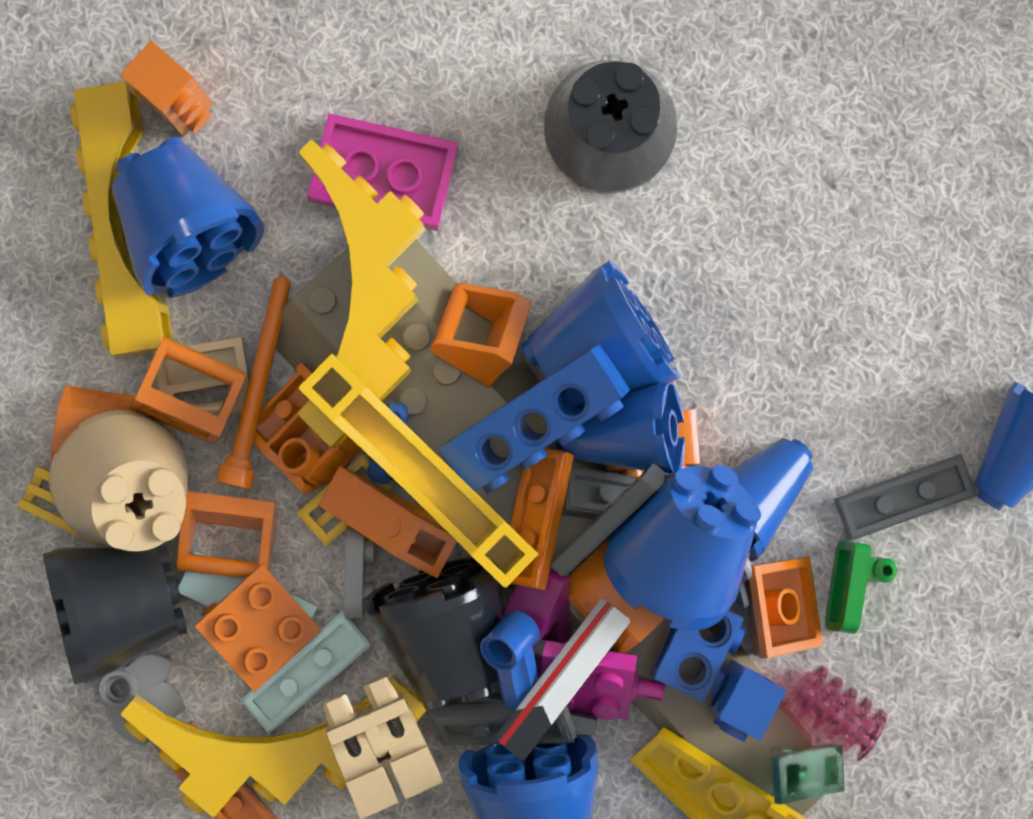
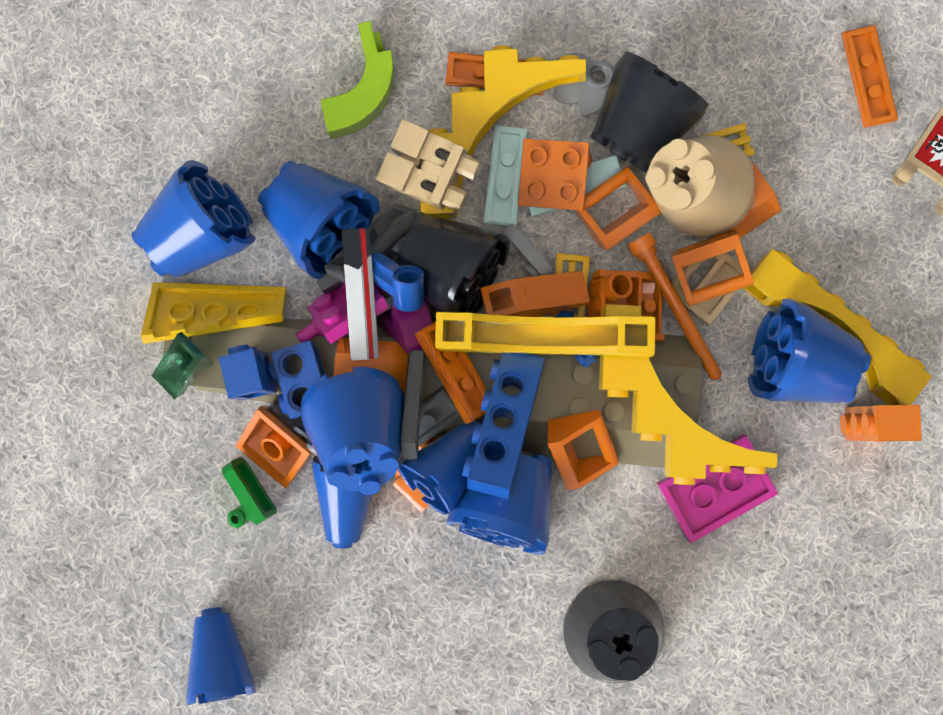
camera: 135 degrees right, 0 degrees up
(838, 710) = (193, 418): clear pink piece -> none
(905, 497) = (261, 570): dark grey tile -> none

